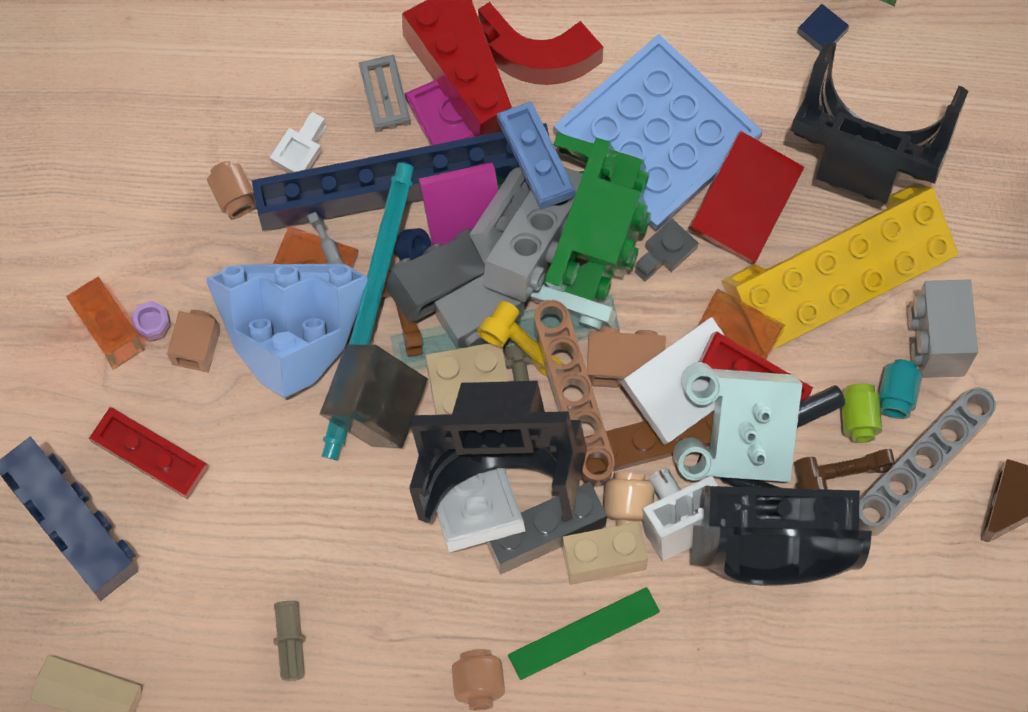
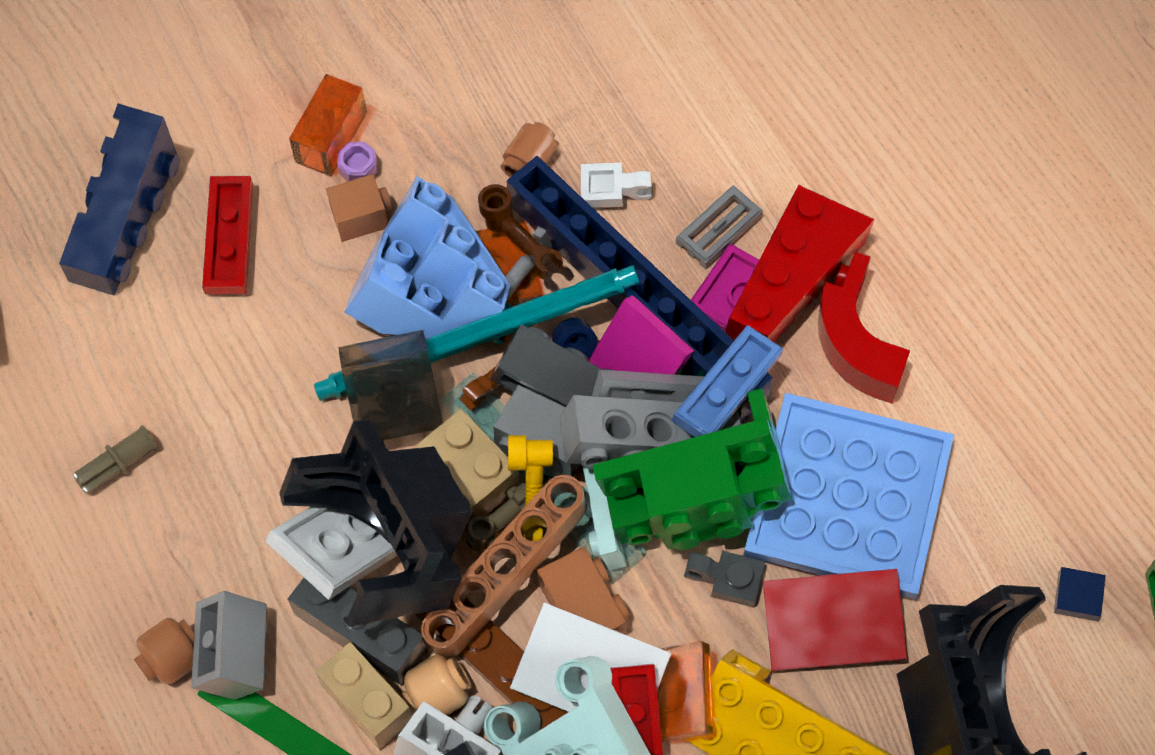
camera: 60 degrees right, 5 degrees down
(270, 229) = (496, 208): none -> reddish brown brick
(505, 629) = (229, 645): none -> light grey brick

